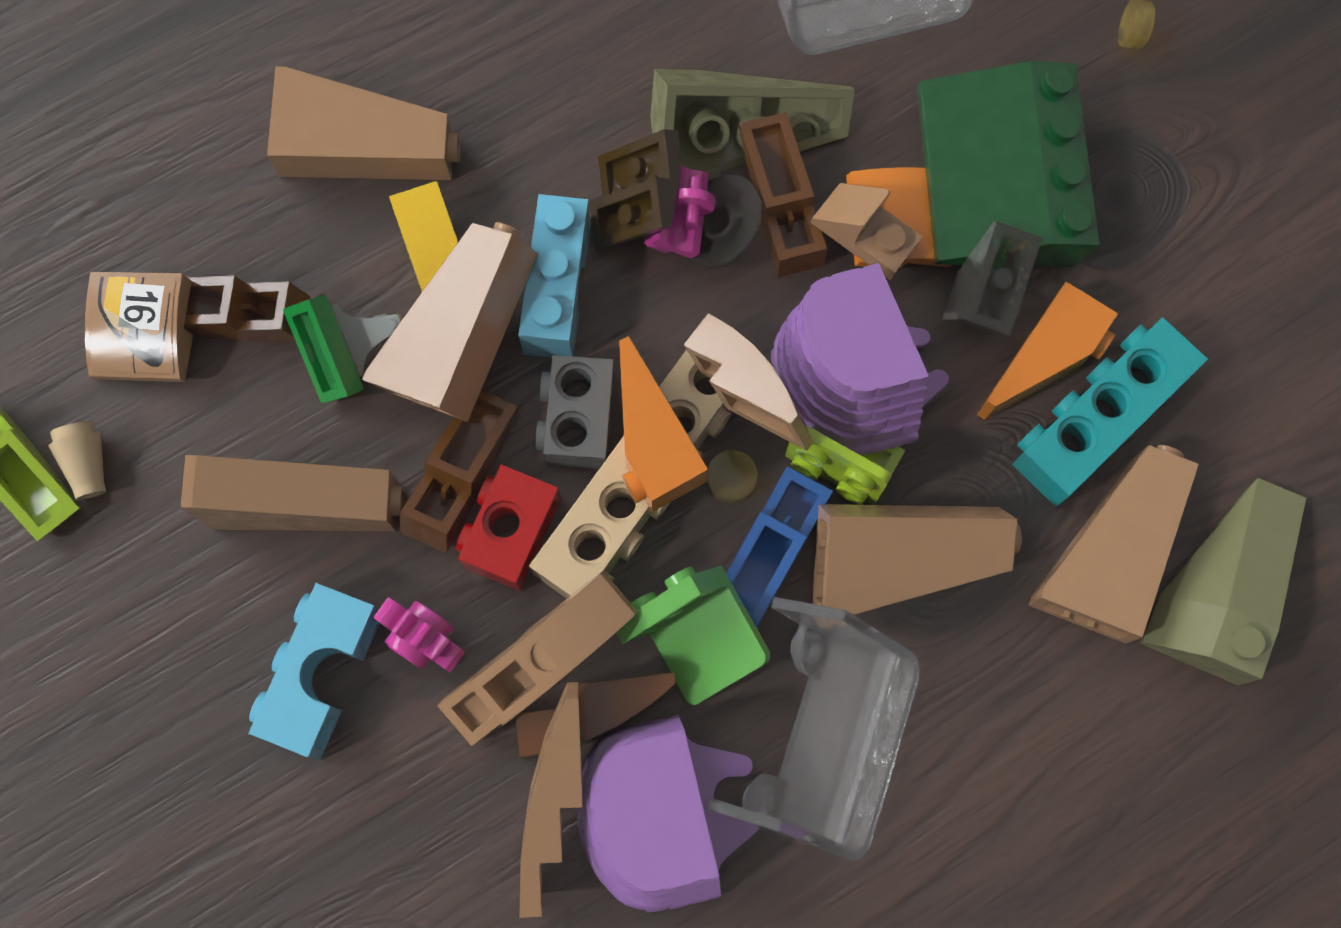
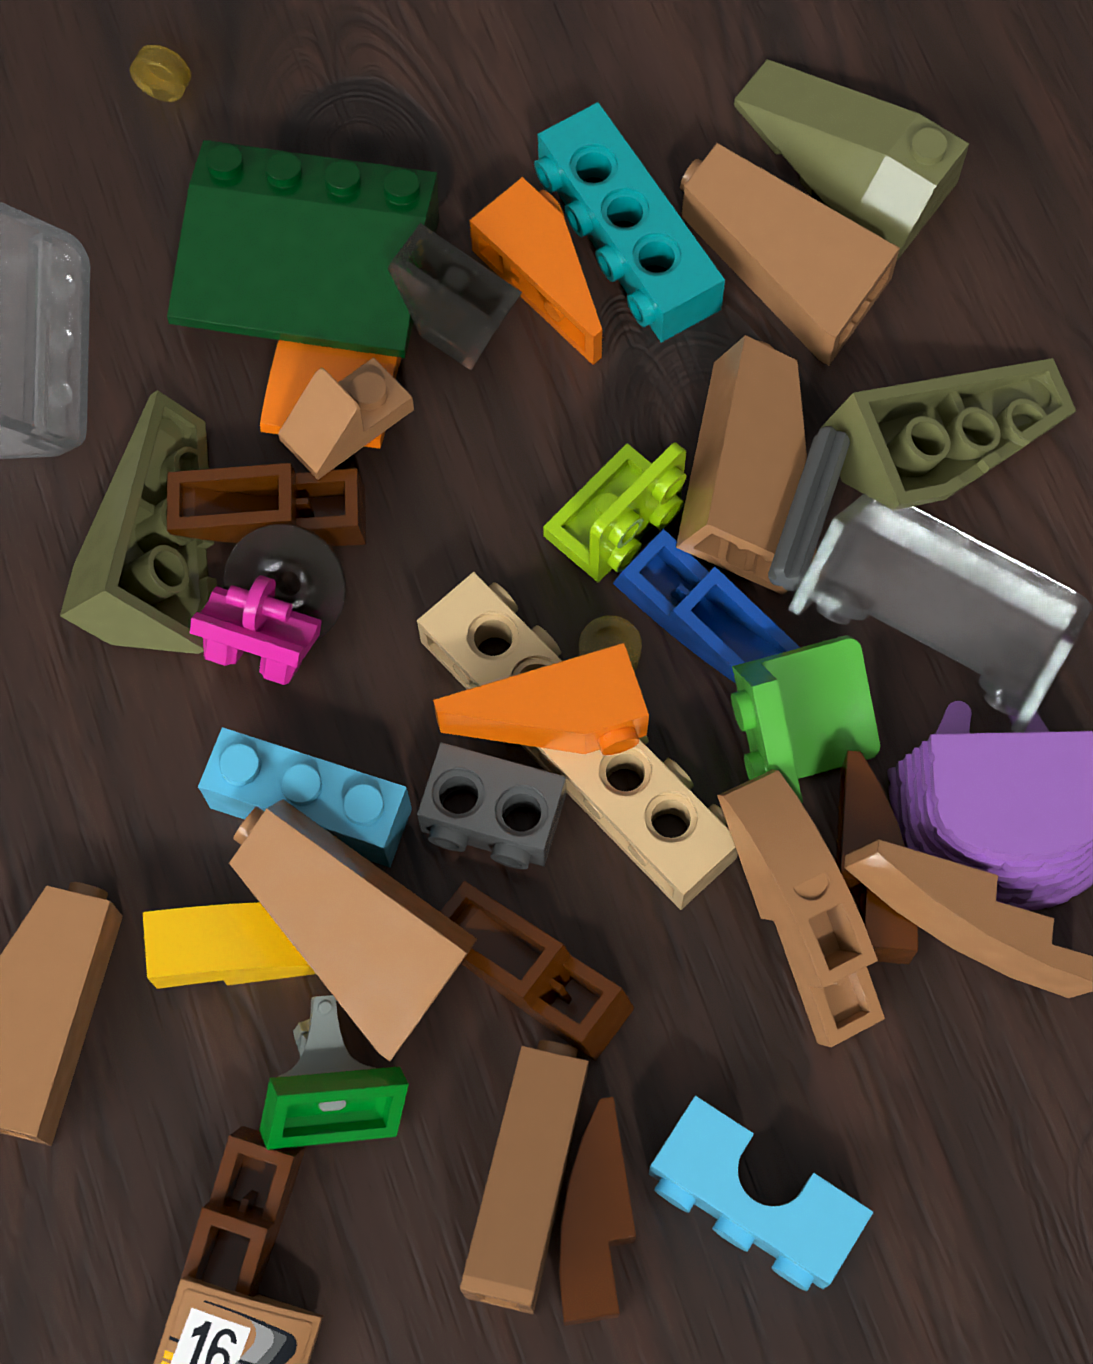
camera: 75 degrees left, 5 degrees down
(276, 554) = (593, 1220): none -> reddish brown slope
(419, 634) = (741, 1048): dark pink gear -> none
(508, 558) = (607, 884): red brick -> none
(637, 189) = (221, 669): dark brown slope -> none
(746, 380) = (525, 573): slope -> none
(856, 363) = (515, 470): medium lavender piece -> none
(876, 601) = (809, 508): none -> dark grey axle
(977, 704) = (944, 432): none -> olive wedge

